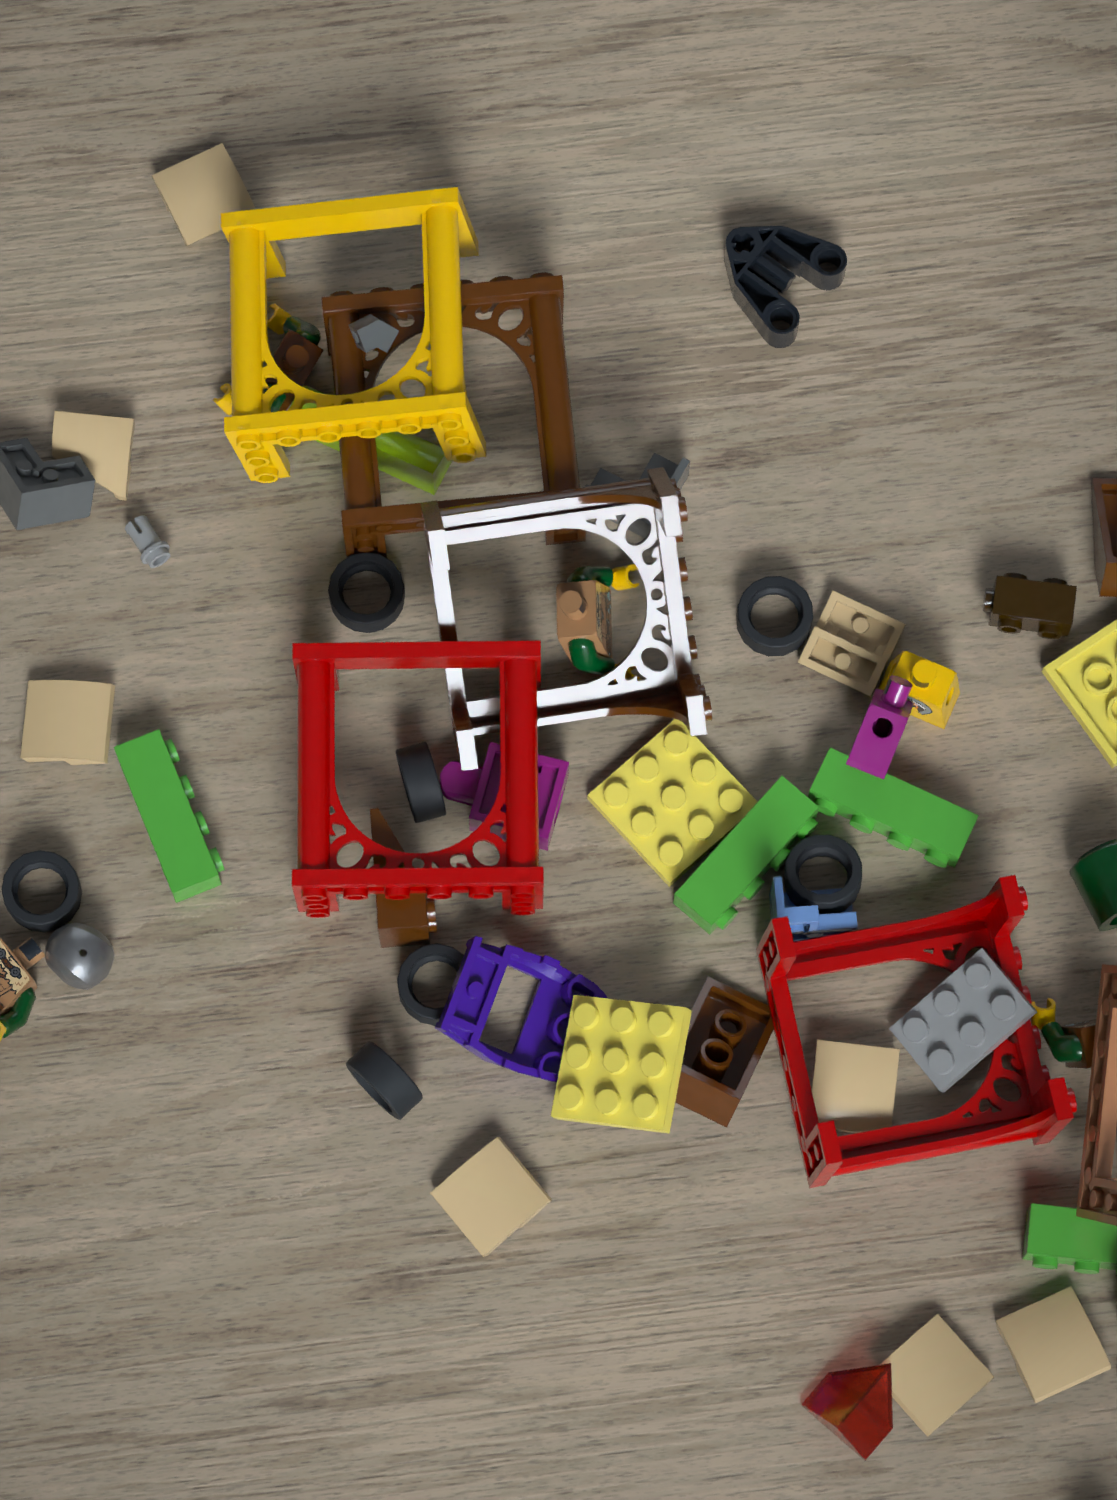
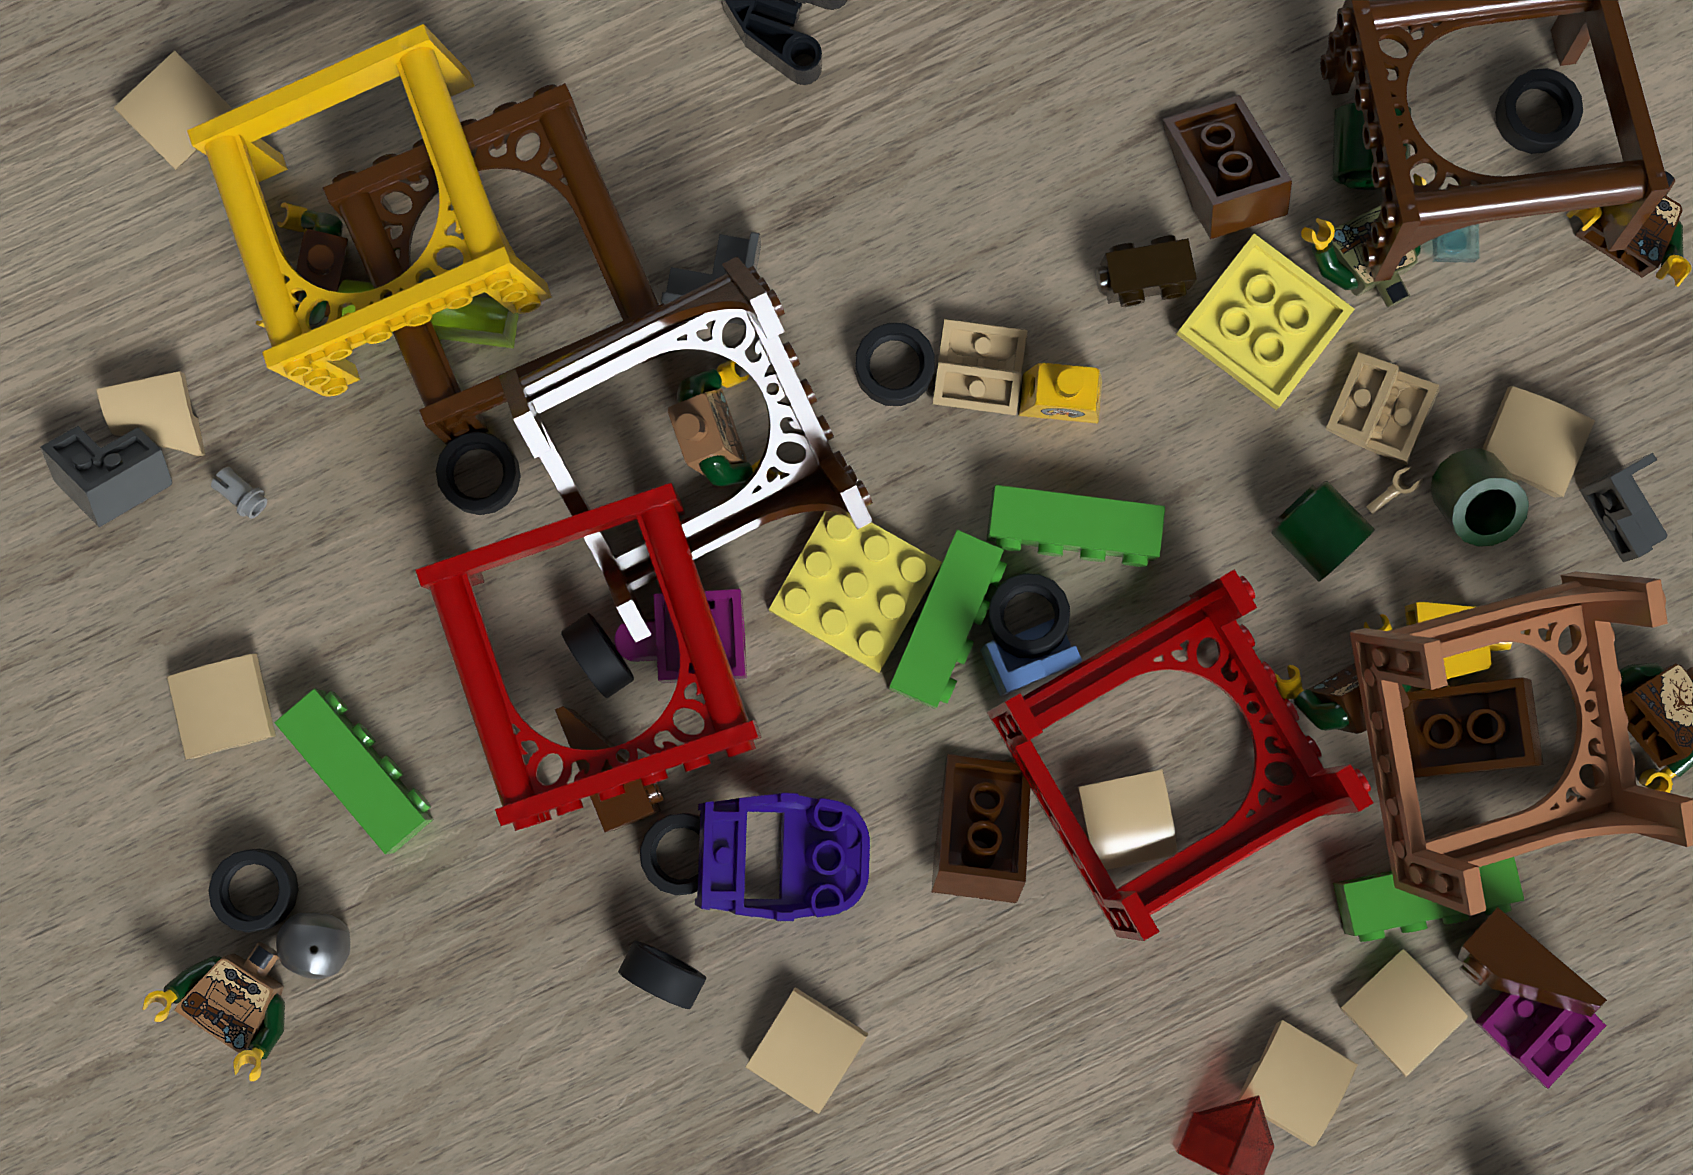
camera: 20 degrees left, 10 degrees up
(372, 333) = (389, 209): dark grey piece -> none
(621, 1063) = (895, 883): light yellow plate -> none
(880, 736) = (1042, 451): magenta torso -> none
(963, 1020) = (1215, 719): light grey plate -> none

